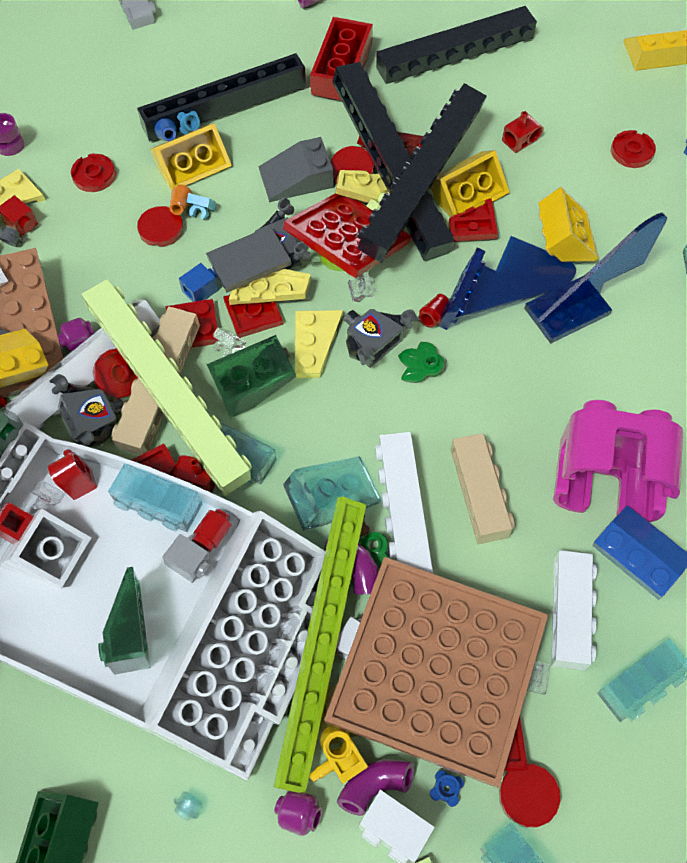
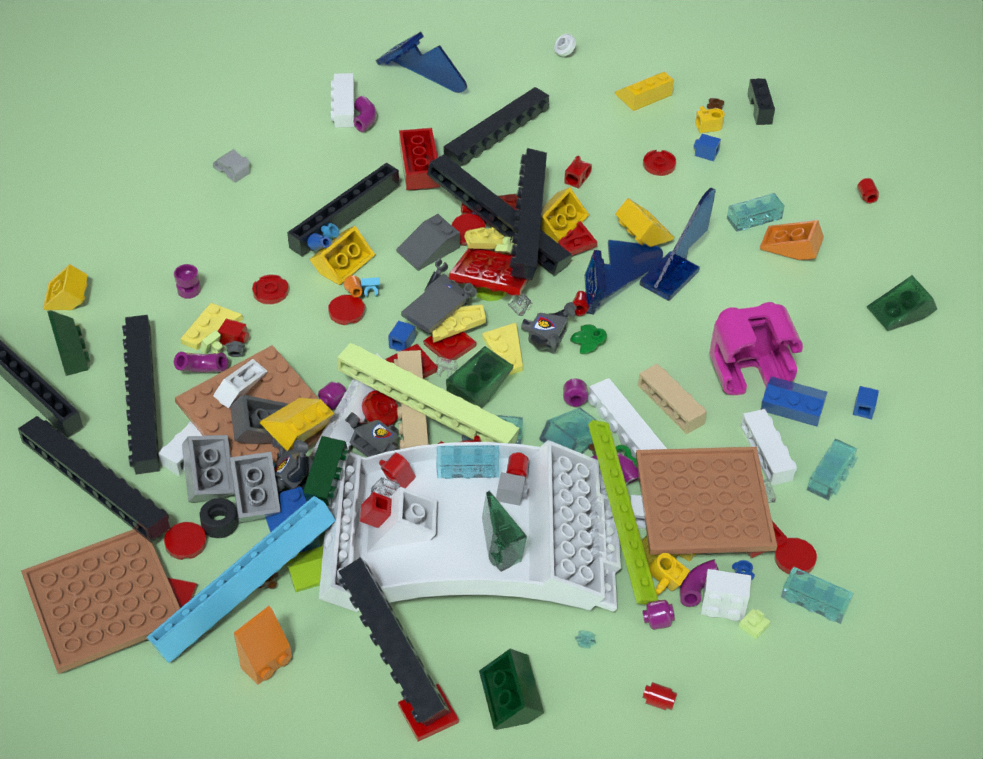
camera: 25 degrees left, 15 degrees down
(362, 434) = (575, 392): none -> magenta head

